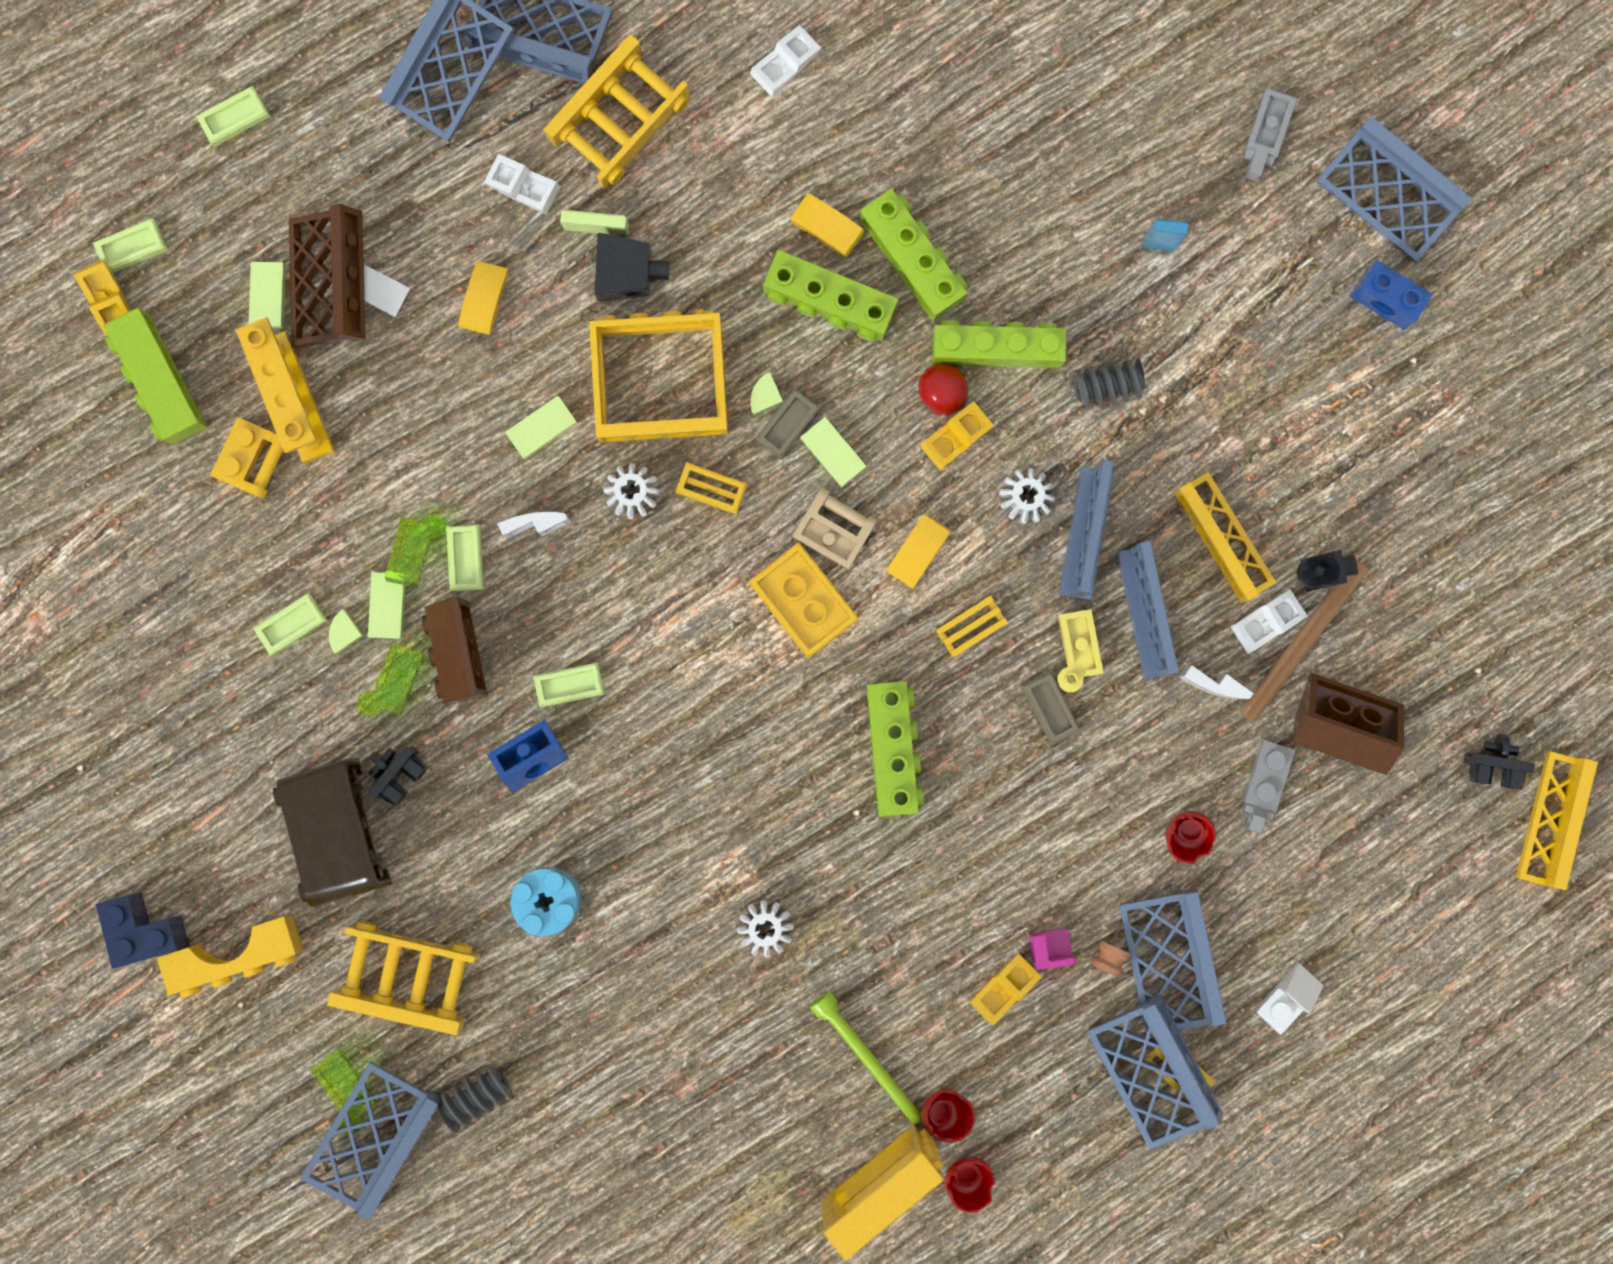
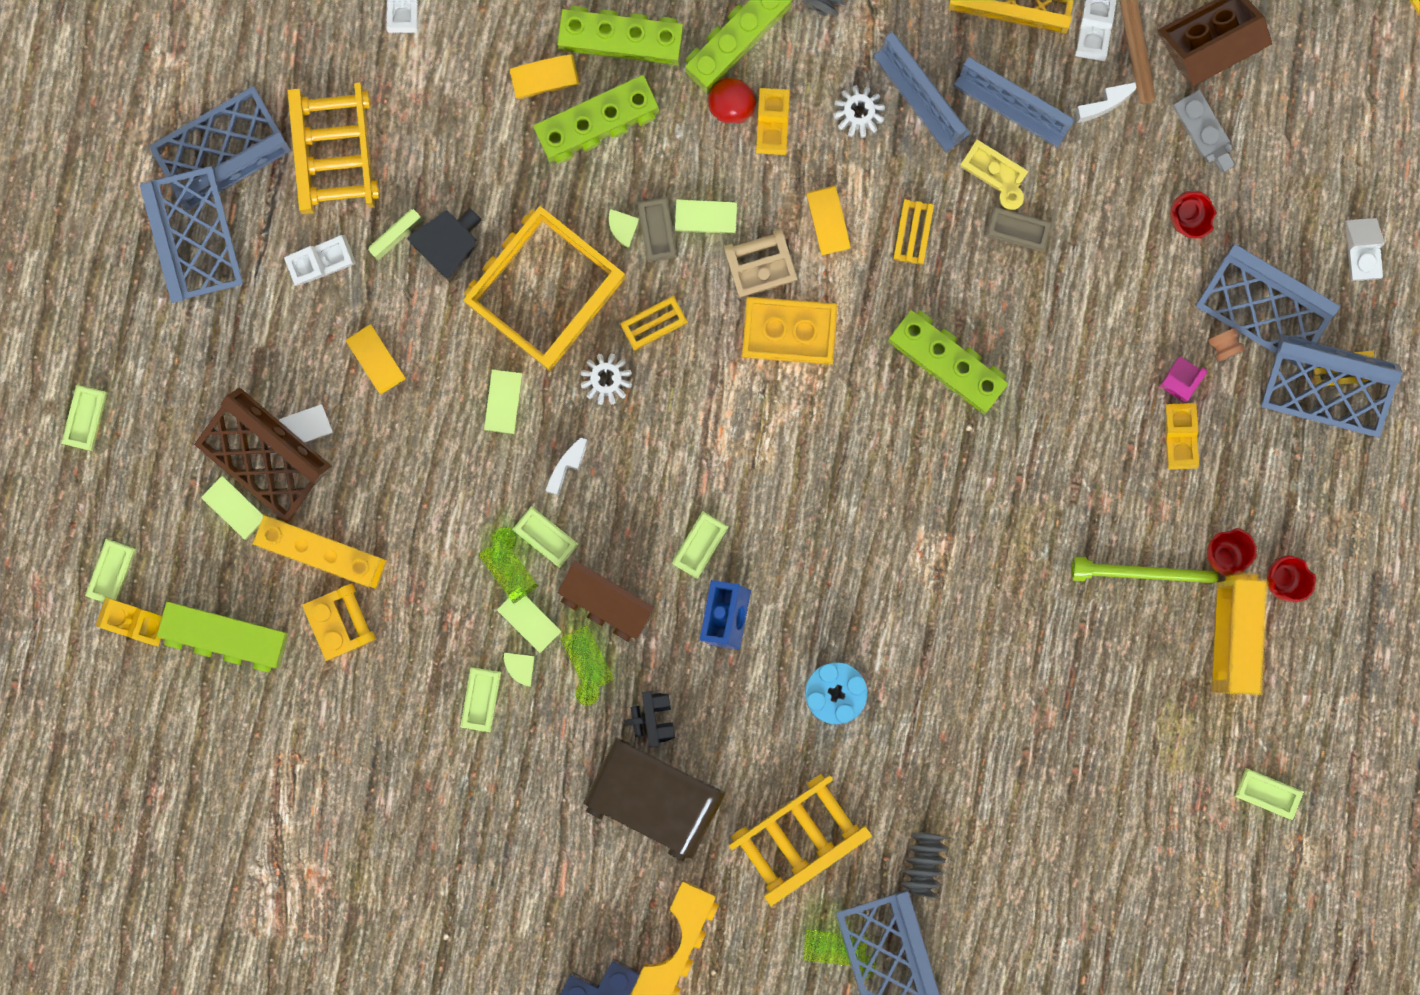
camera: 45 degrees left, 0 degrees up
(769, 939) = (982, 556): white gear -> none

